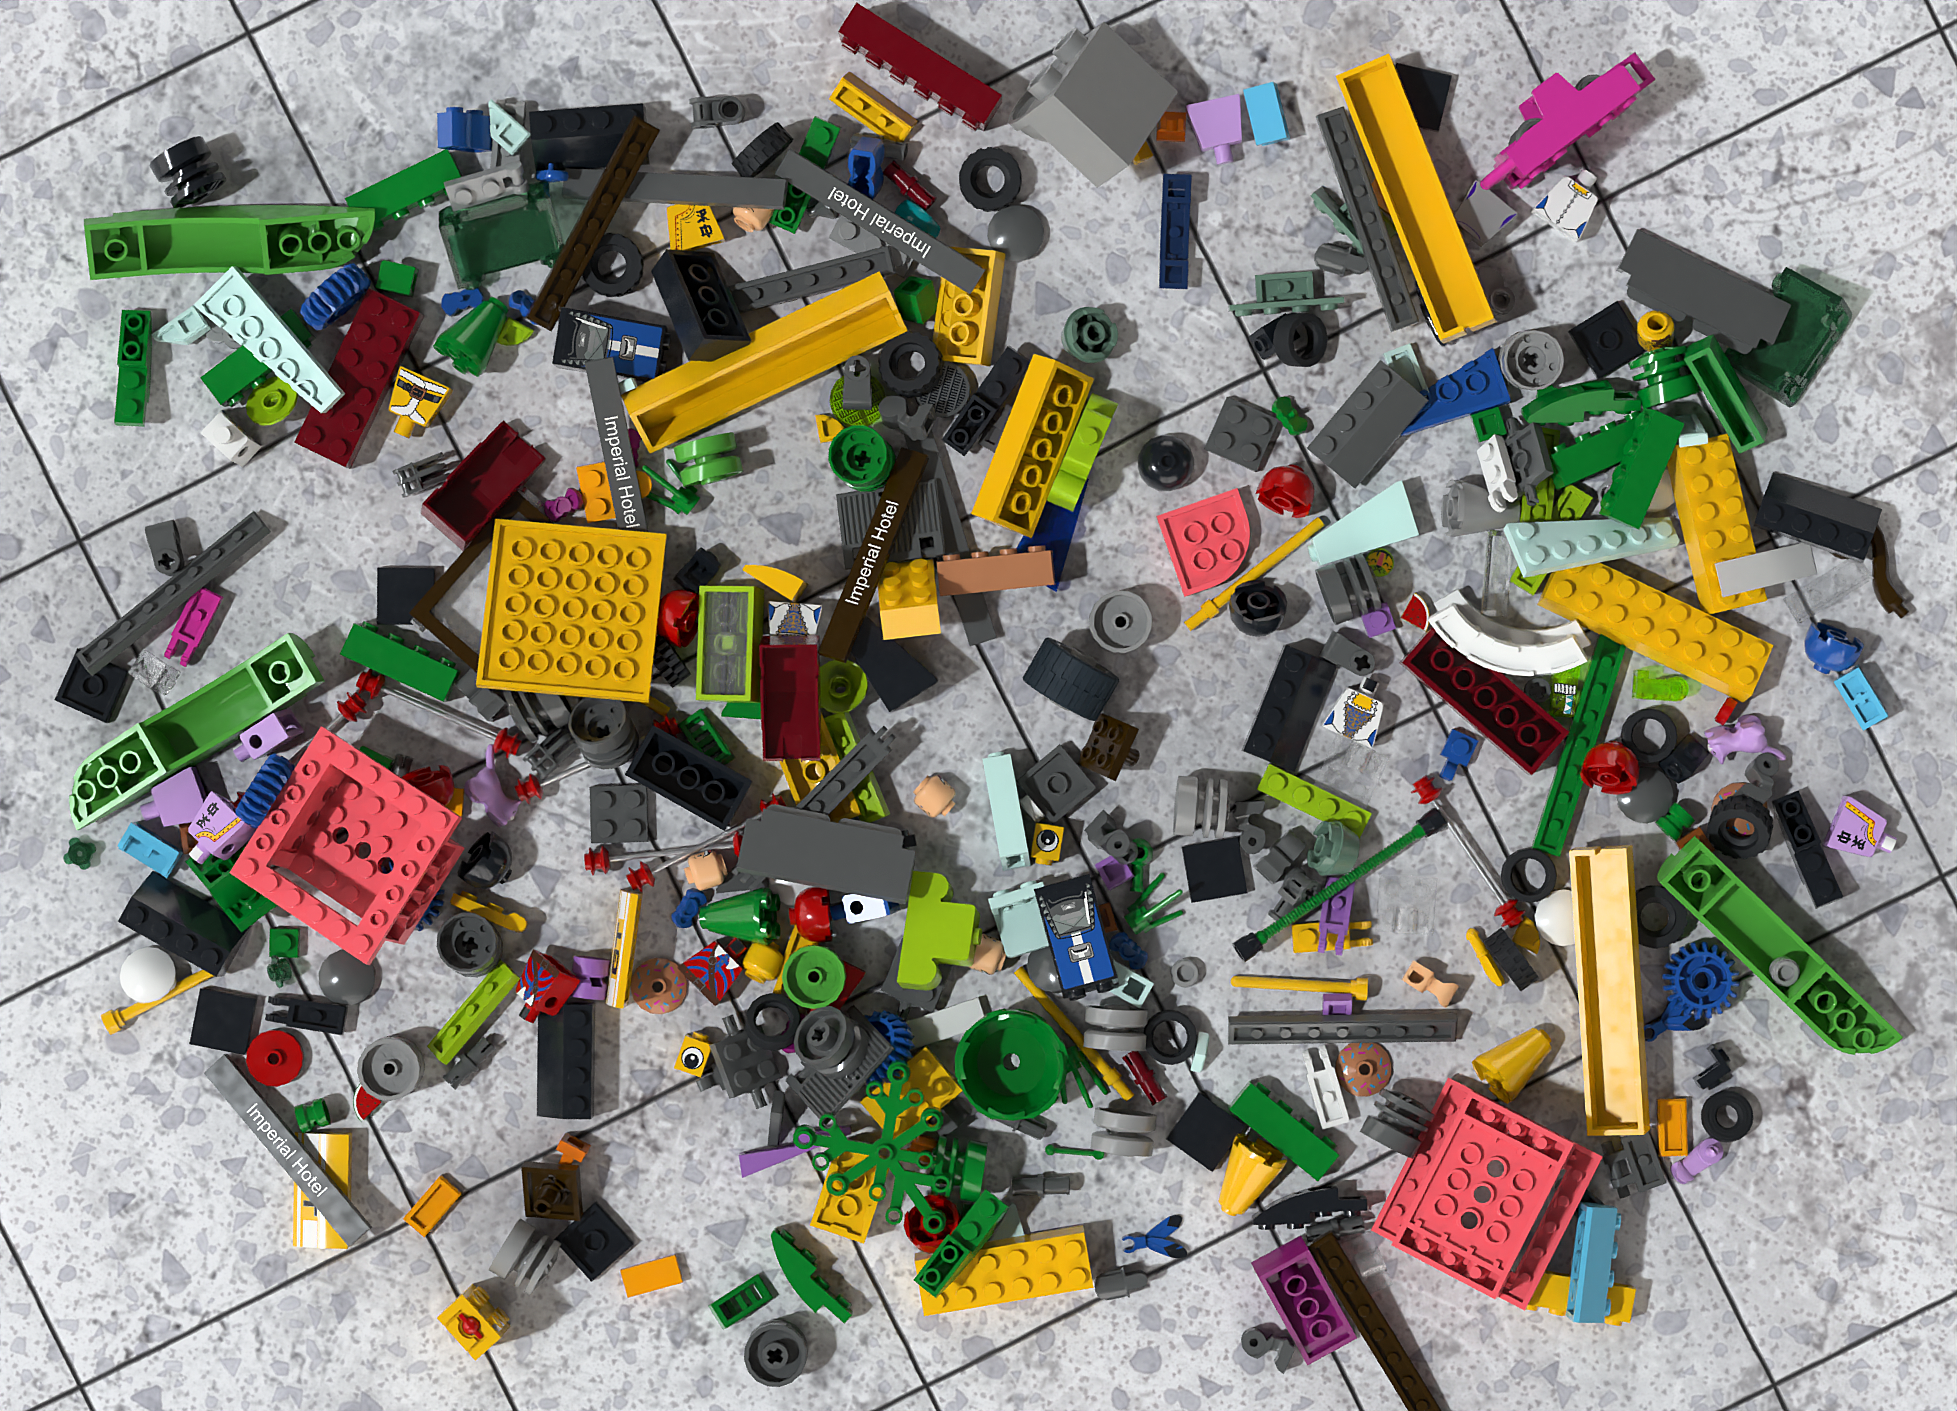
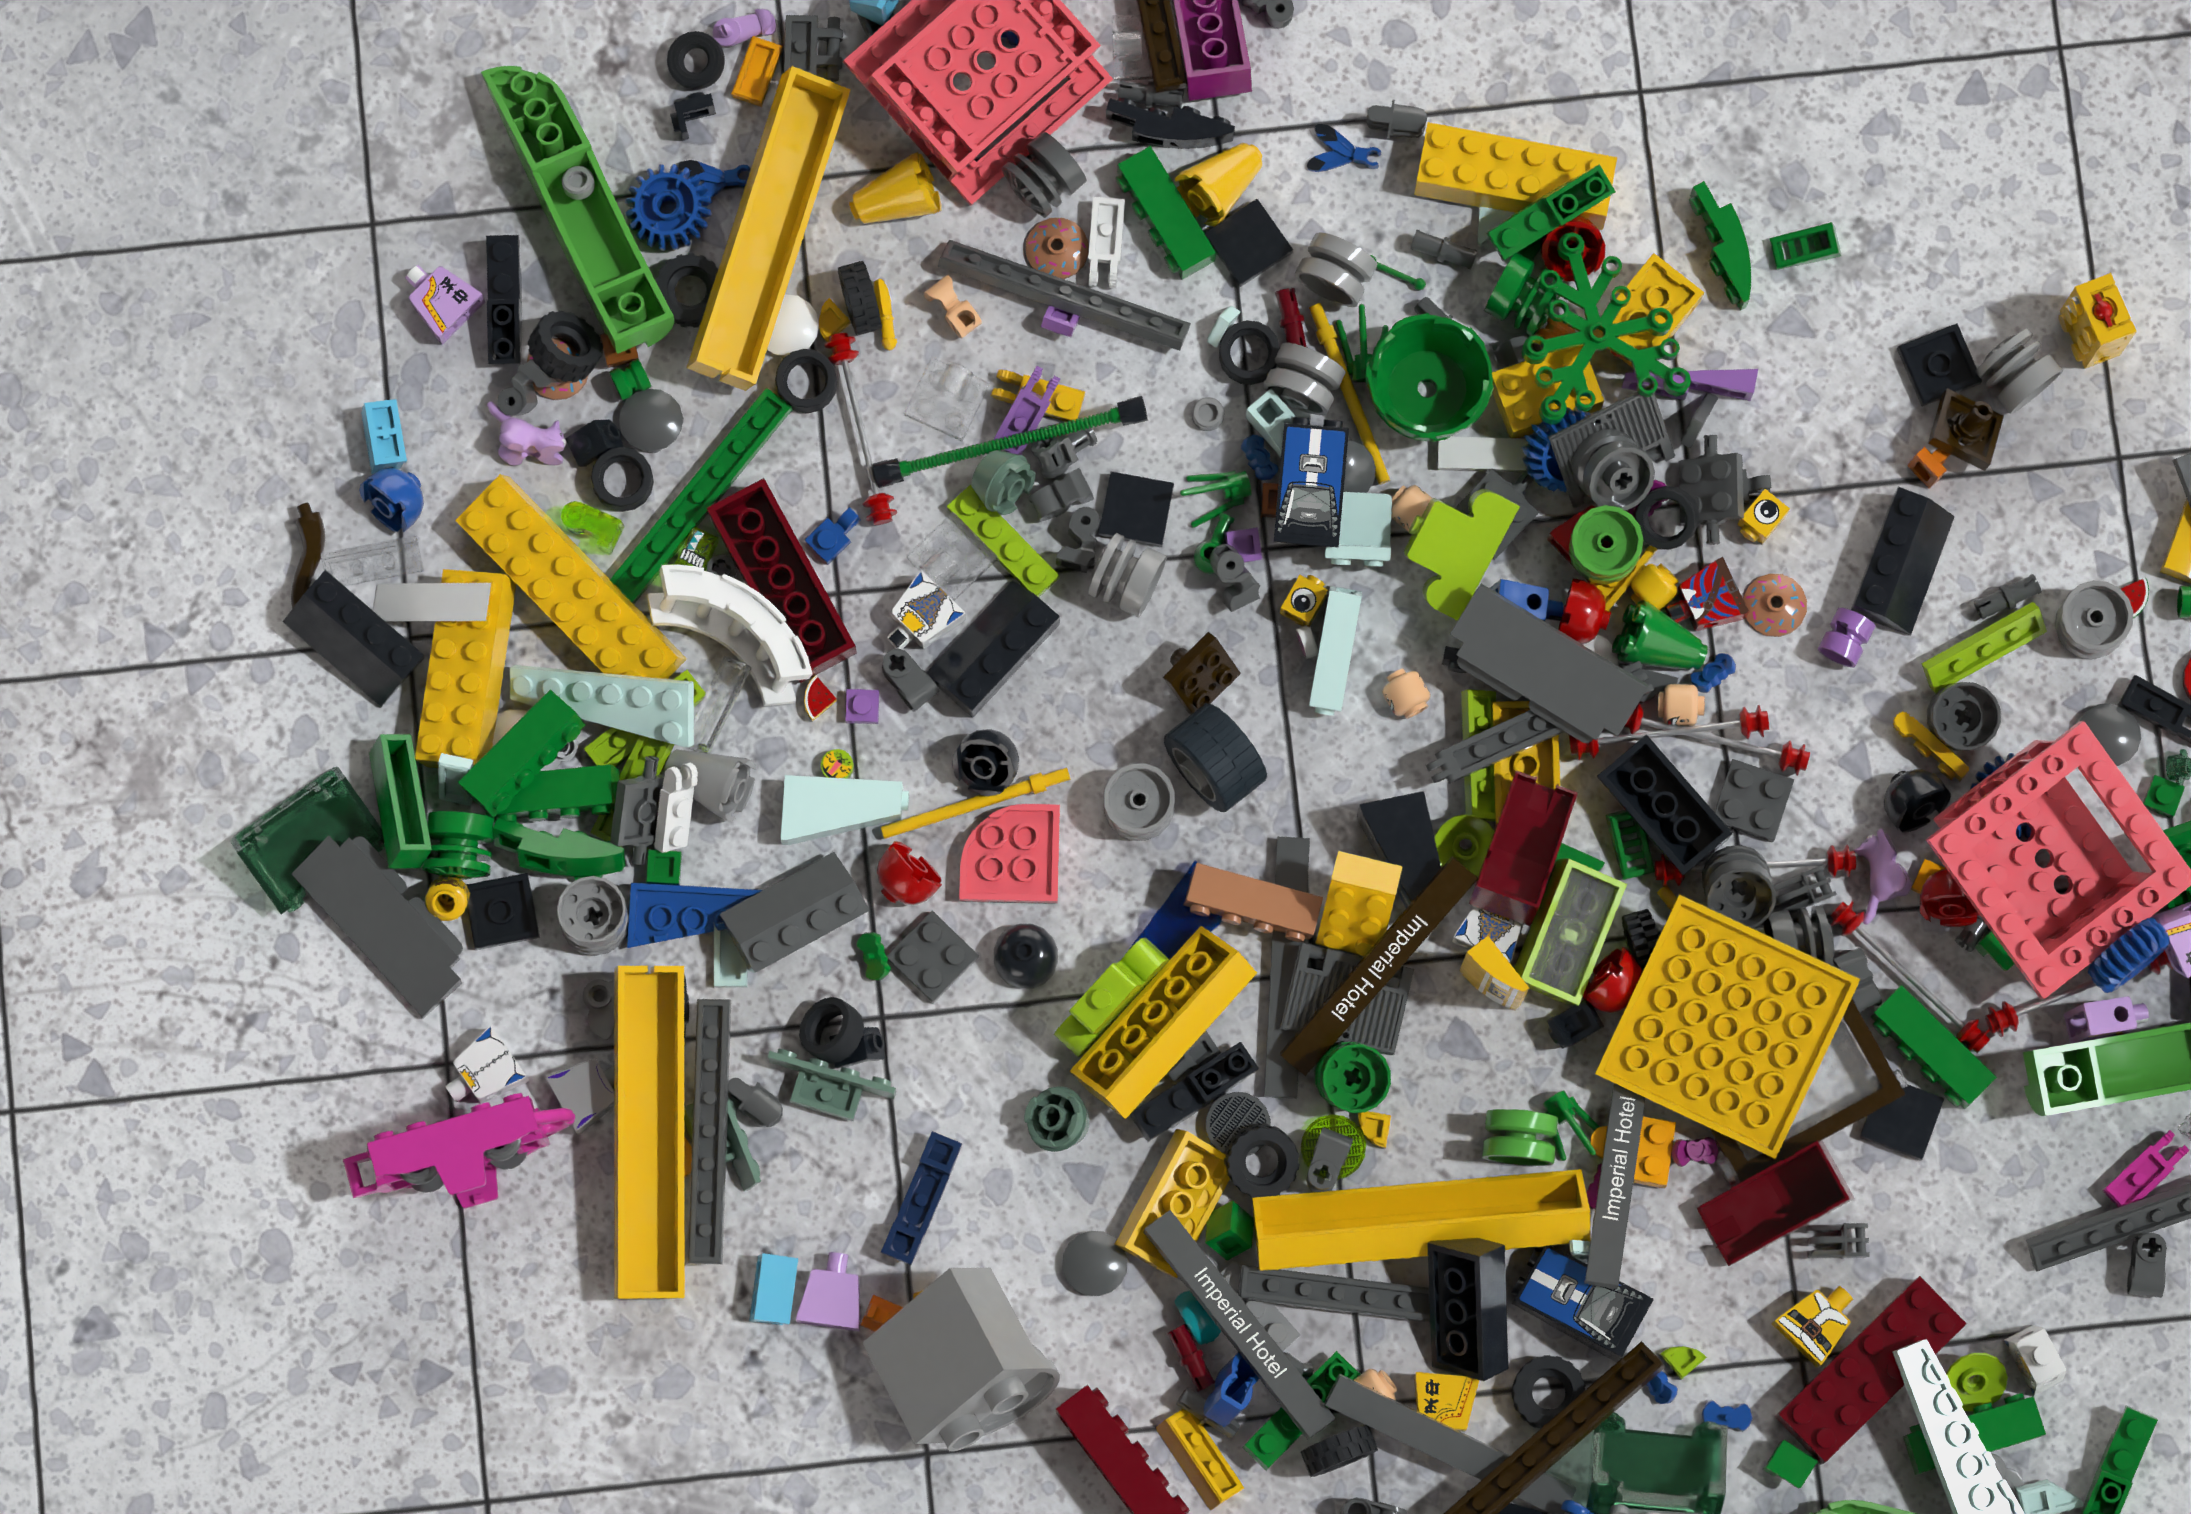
camera: 160 degrees left, 10 degrees down
(335, 296) = (1865, 1467): blue gear -> none
(432, 1206) = (2099, 463): light orange tile -> none
(473, 337) = (1728, 1368): green cone -> none
(544, 986) = (1897, 645): red torso -> none
(623, 948) = (1800, 654): yellow slope -> none
(651, 1275) = (1890, 307): light orange tile -> none
(774, 1370) = (1803, 183): dark grey wheel -> none
(896, 415) = (1297, 1114): dark grey leg -> none
(990, 157) = (1076, 1323): black tyre -> none
(1056, 784) = (1271, 659): dark grey plate -> none
(1349, 588) = (881, 745): dark grey wheel -> none
(1357, 987) = (1032, 331): yellow piece -> none
(1426, 94) = (592, 1248): black tile -> none
(1610, 767) = (675, 458): red cylinder -> none
(1725, 711) = (531, 474): red tile -> none

